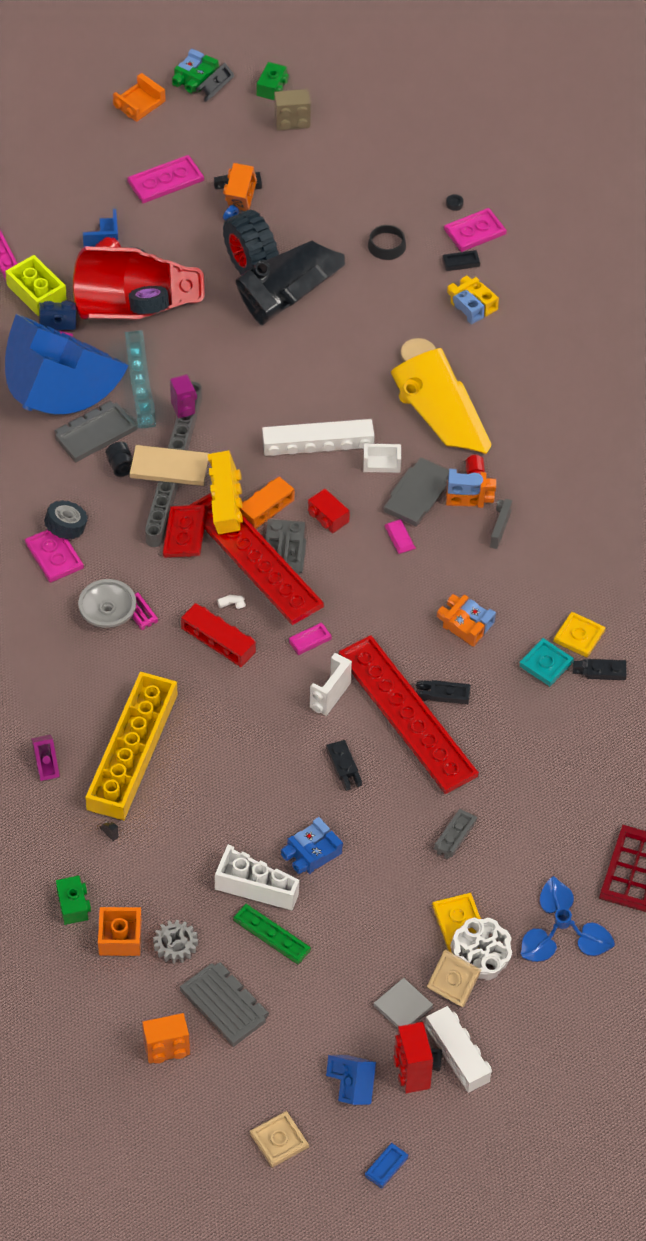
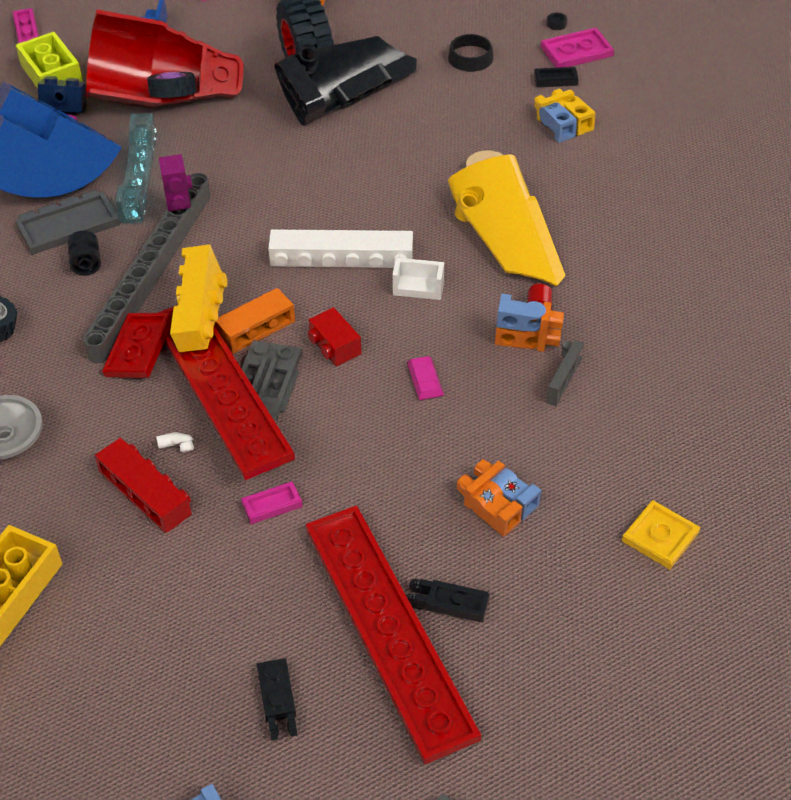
camera: 10 degrees right, 5 degrees down
(146, 622) = (54, 457): dark pink tile -> none
(169, 465) = (136, 262): tan tile -> none
(324, 698) = (284, 577): white panel -> none
(417, 491) = (456, 324): dark grey piece -> none
(546, 662) = (608, 570): teal plate -> none
(601, 669) = (689, 588): black hinge -> none

